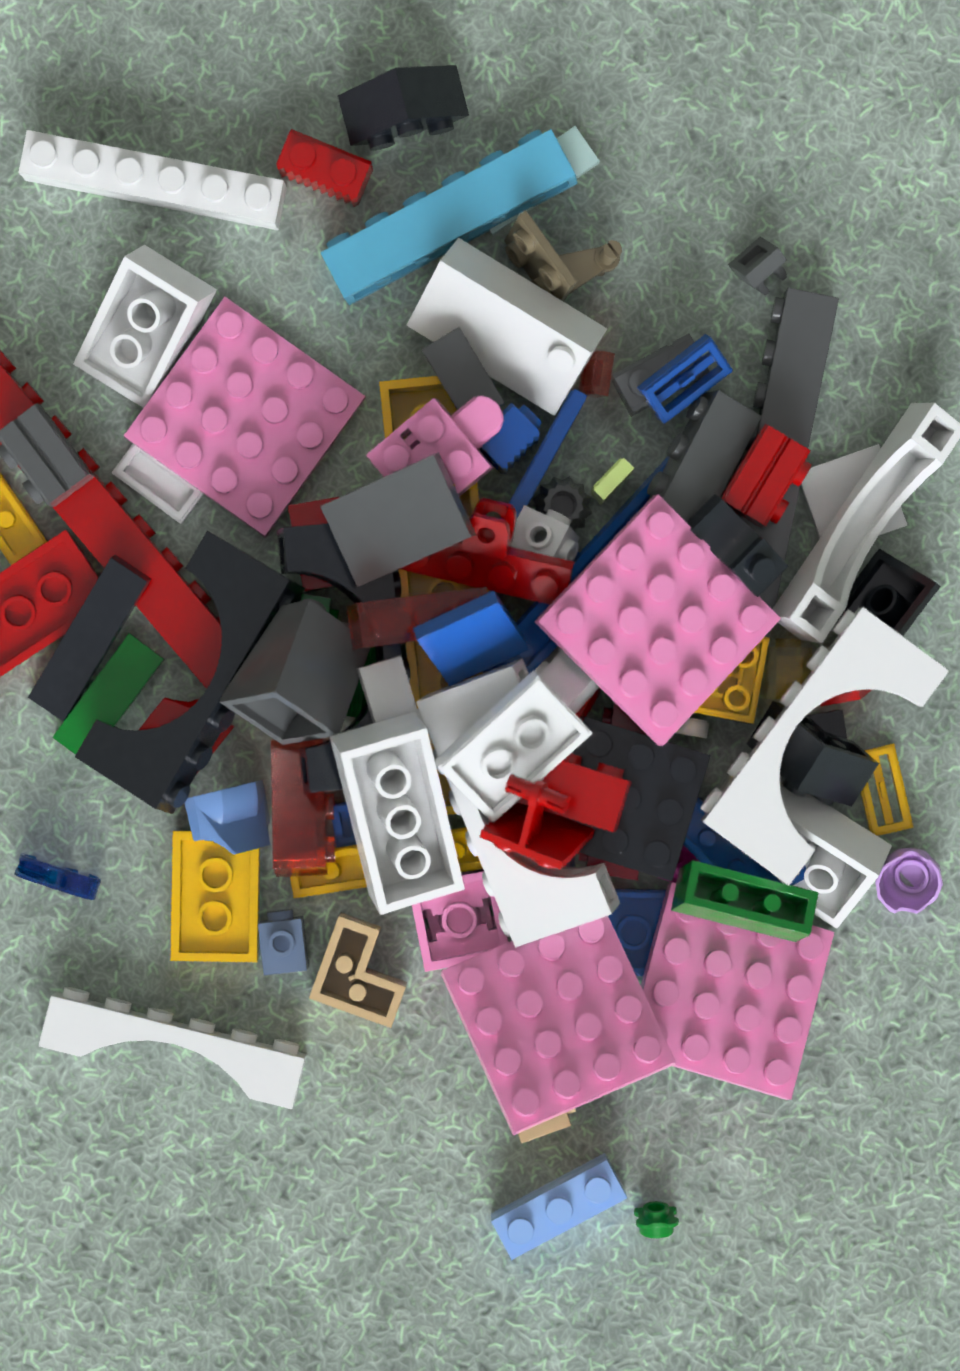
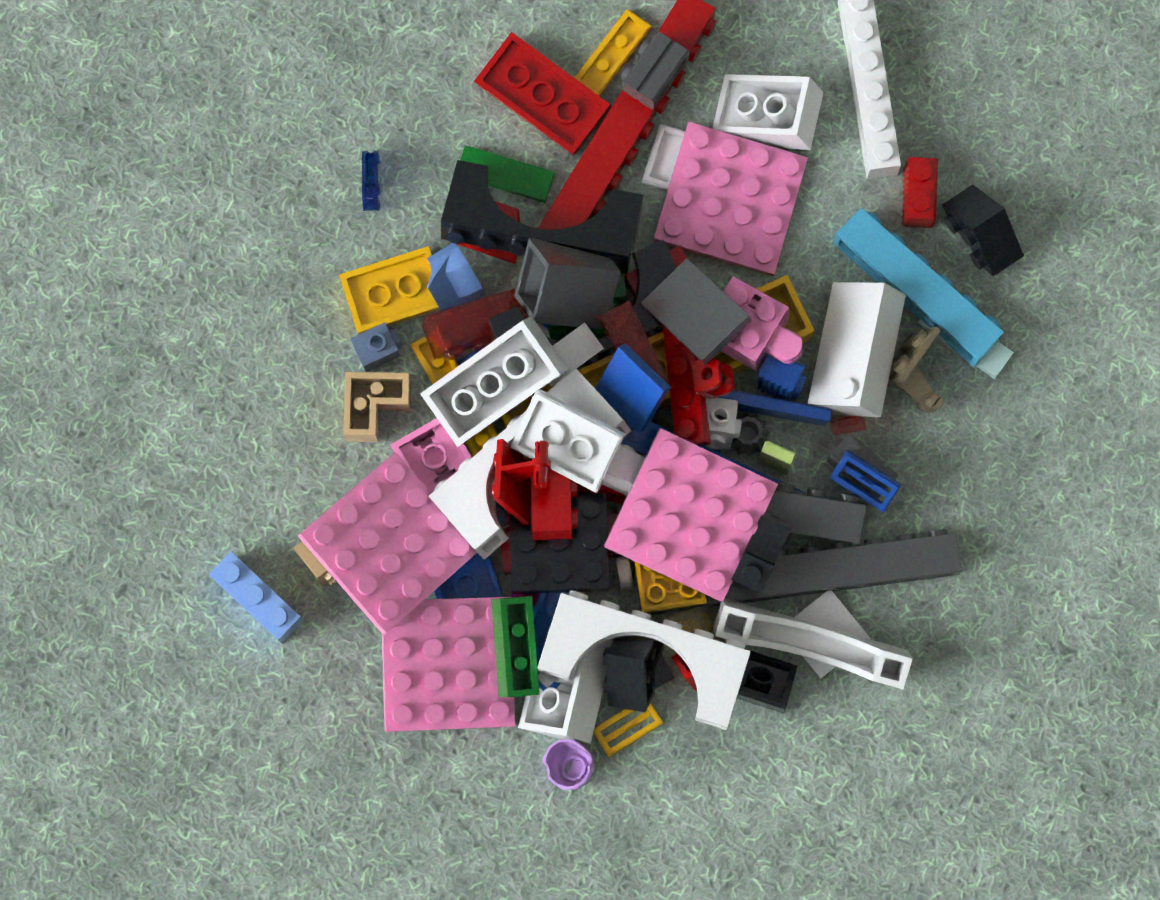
camera: 75 degrees right, 10 degrees down
(89, 637) = (542, 144): black tile -> none
(261, 1069) = (283, 360): white arch -> none
(460, 369) = (815, 324): dark grey tile -> none
(656, 1219) = (268, 670): green plate -> none
(758, 263) = (965, 509): dark grey tile -> none
(765, 477) = (817, 560): red brick -> none

